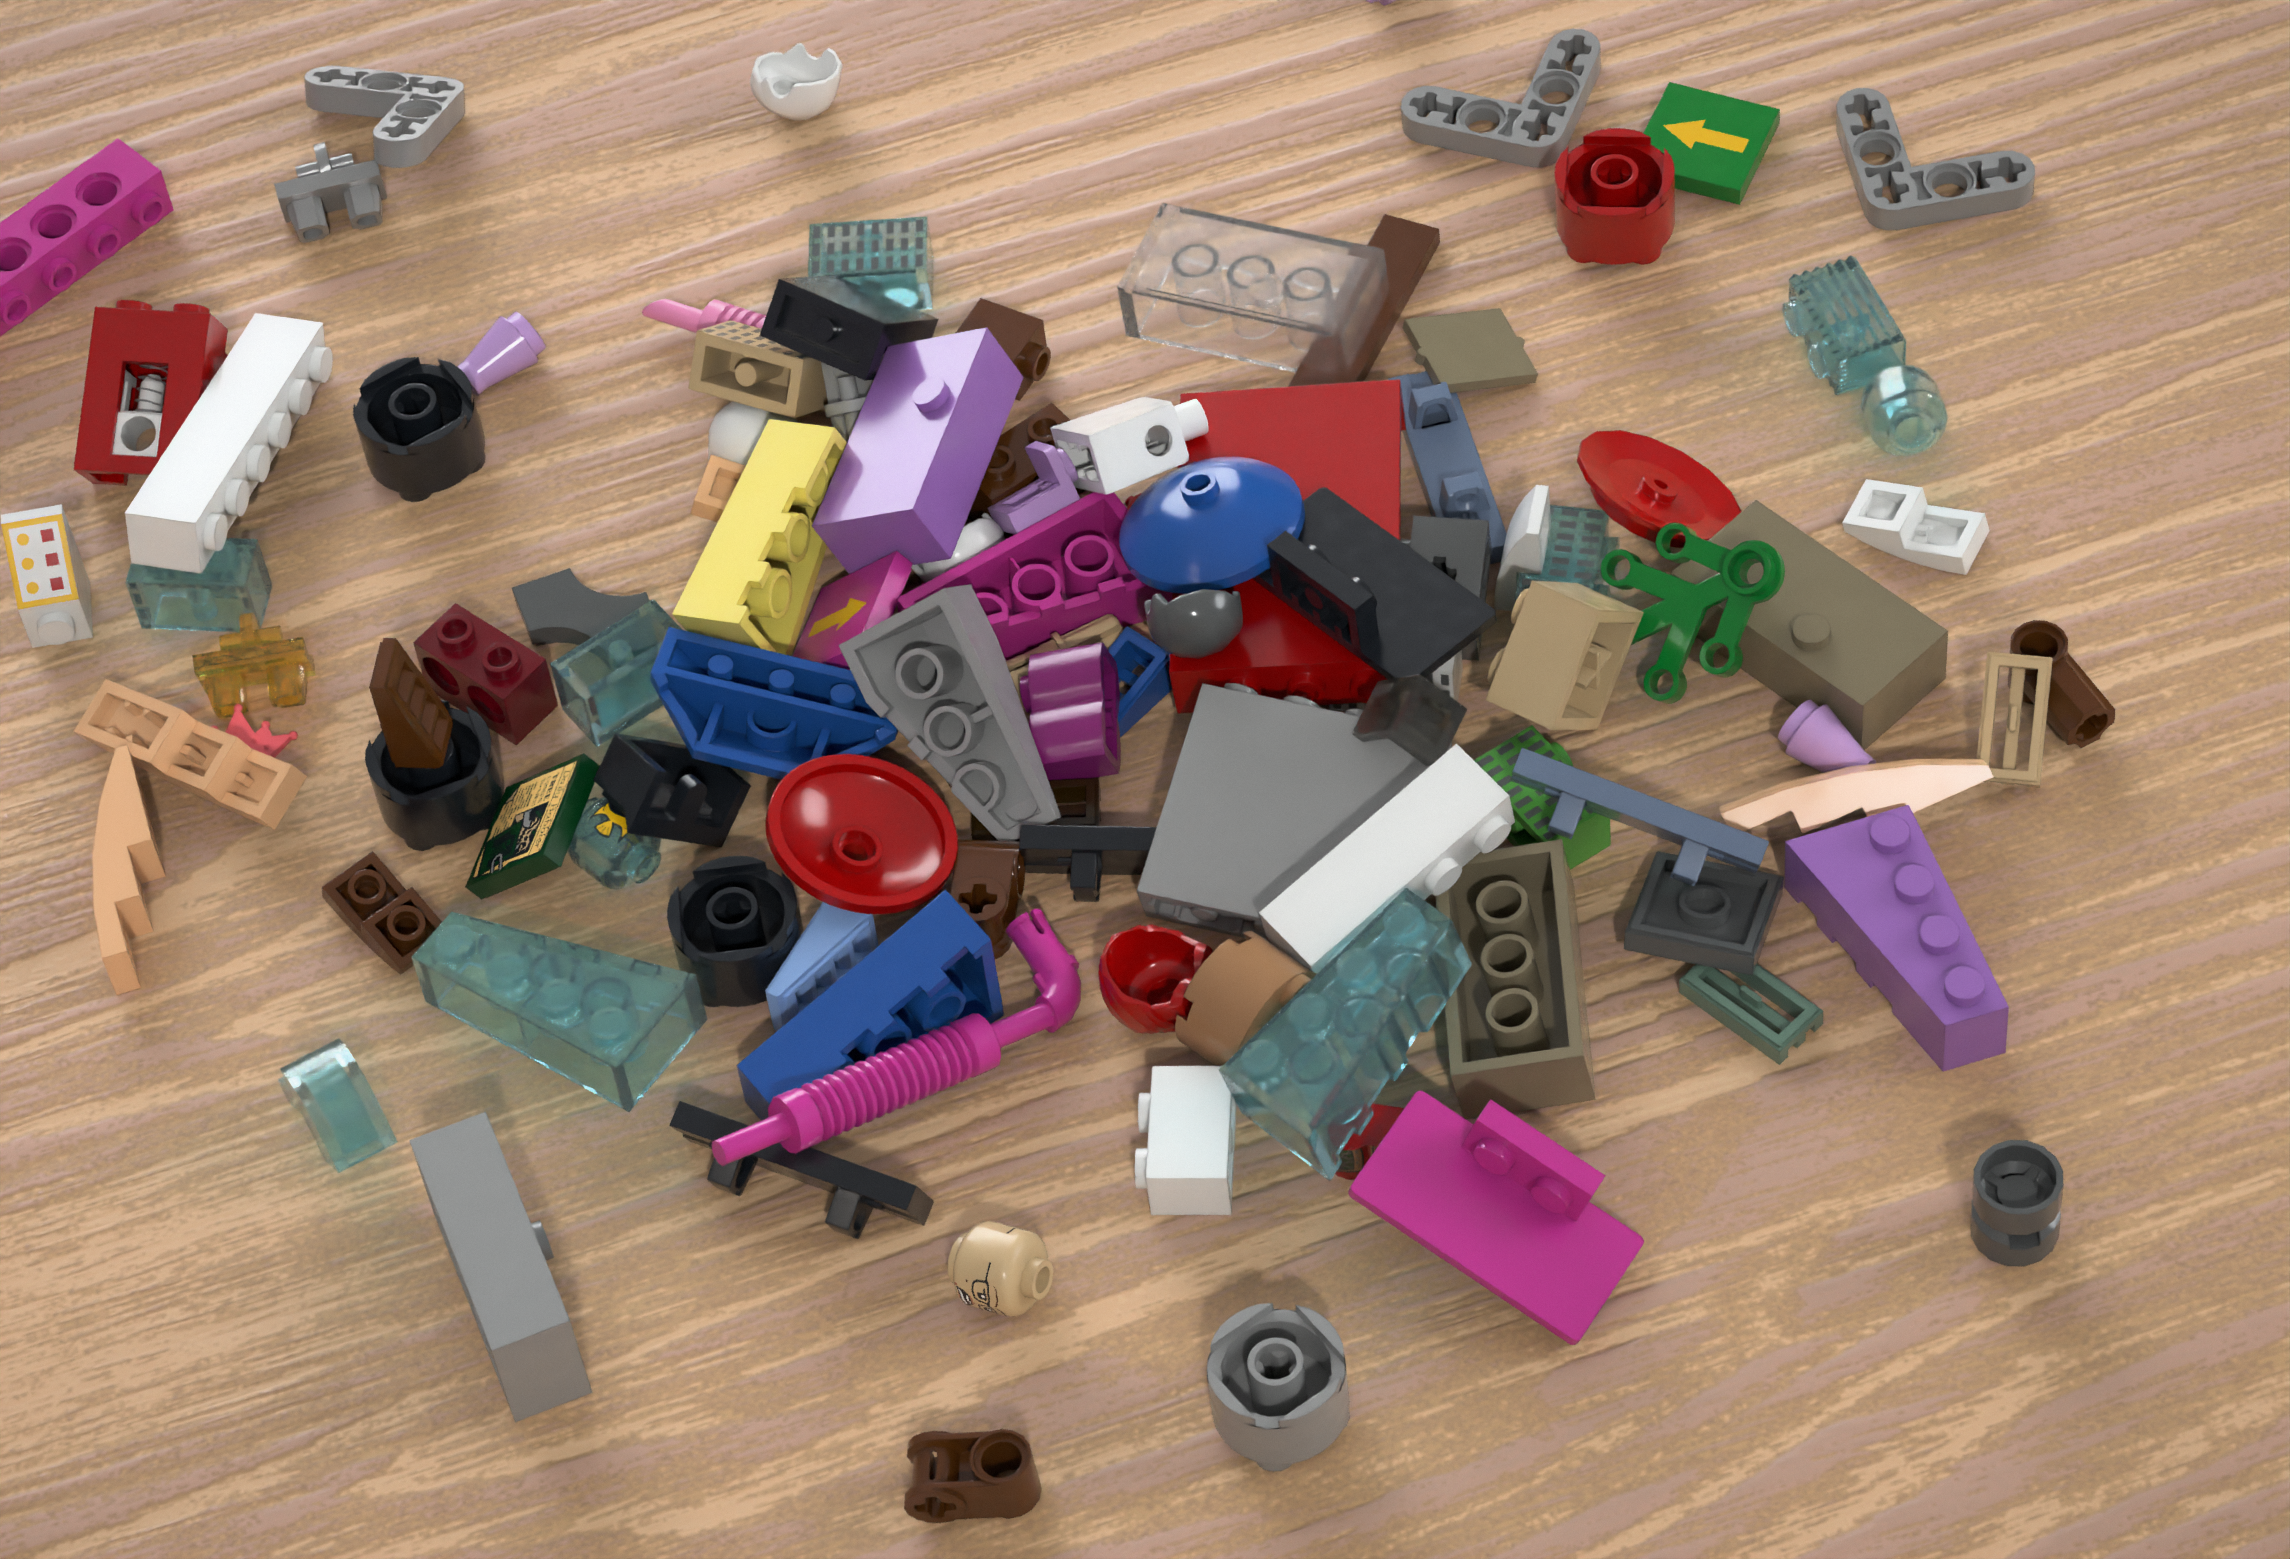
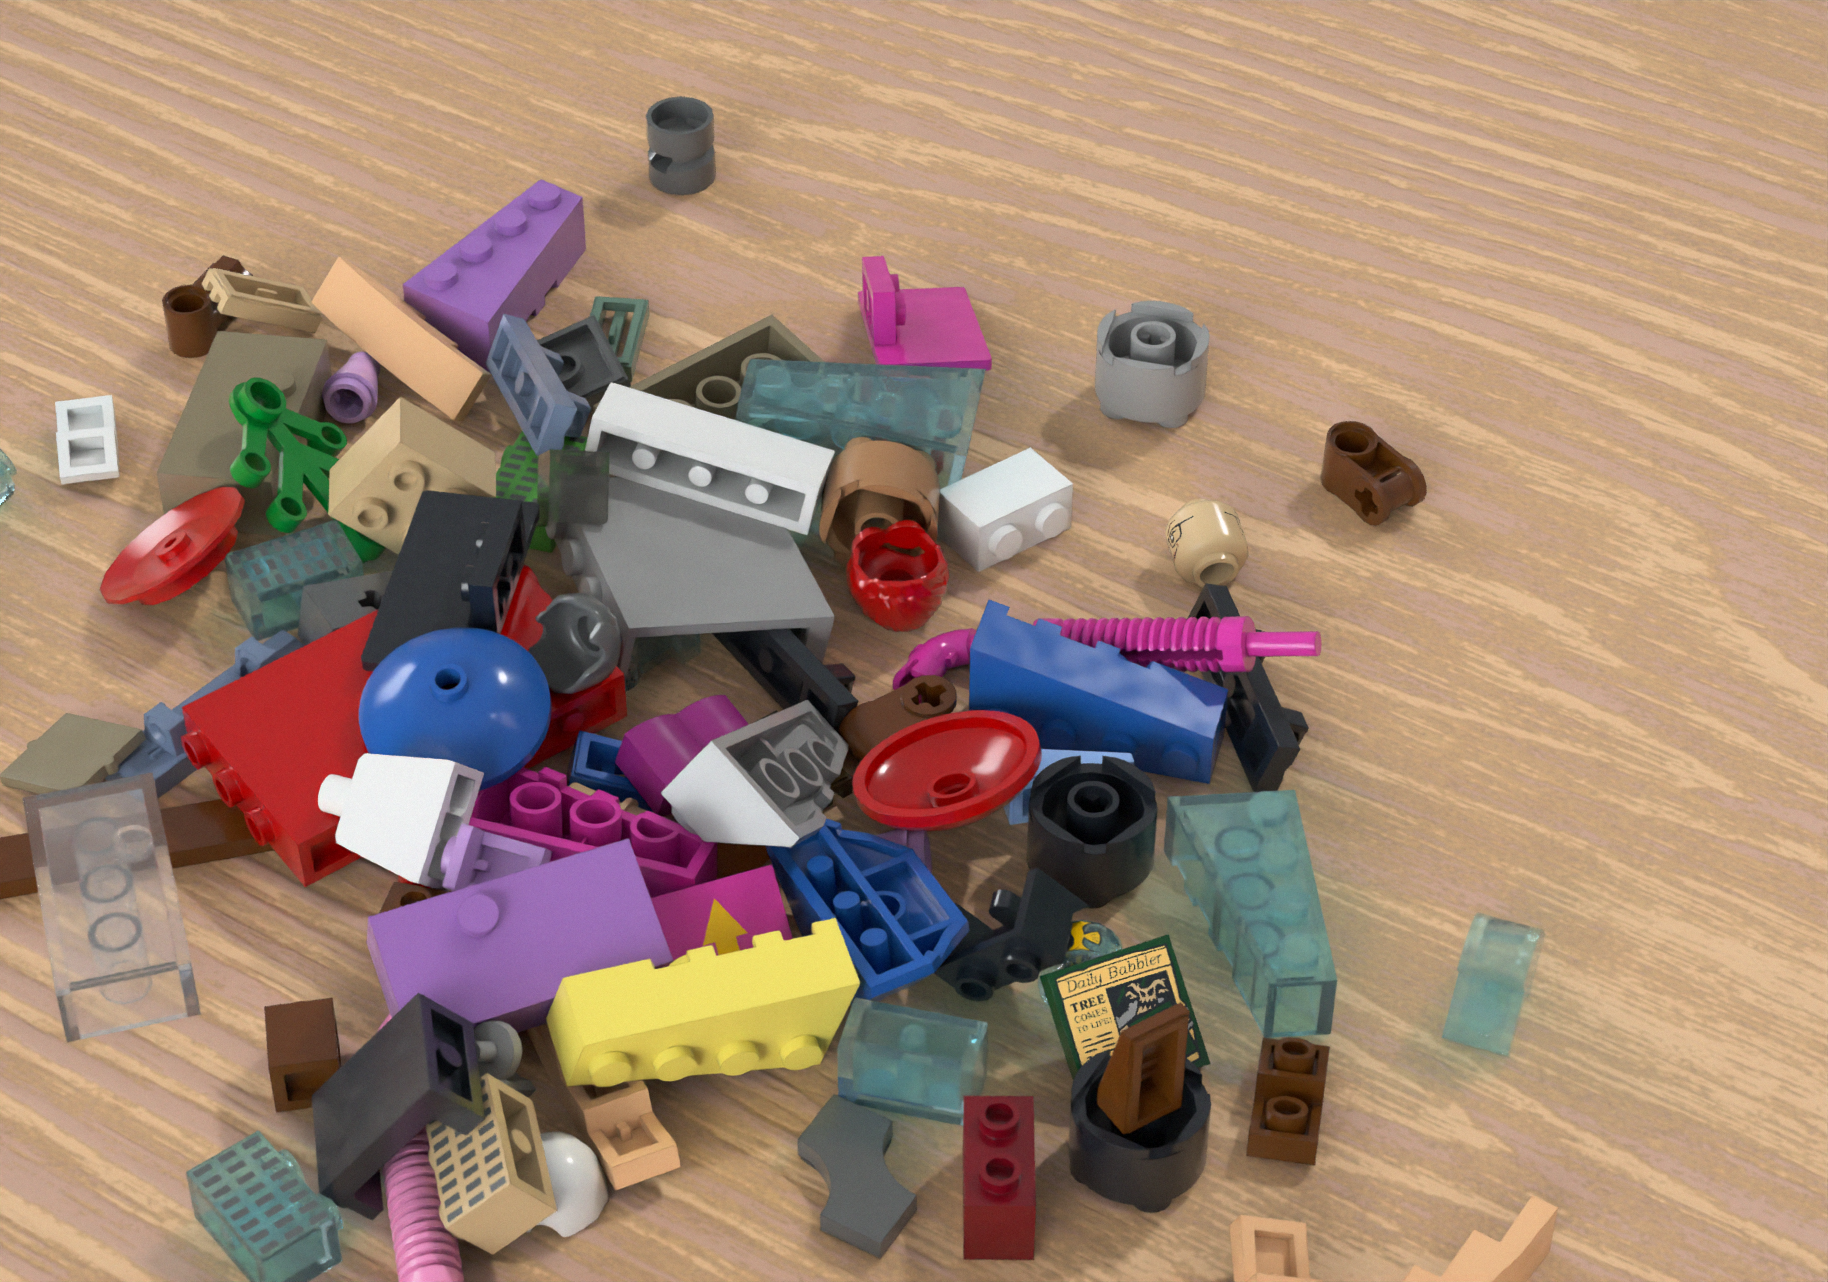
camera: 135 degrees left, 10 degrees down
(501, 1266) = (1514, 763): light grey brick -> none
(1524, 545) = (296, 557): white slope -> none

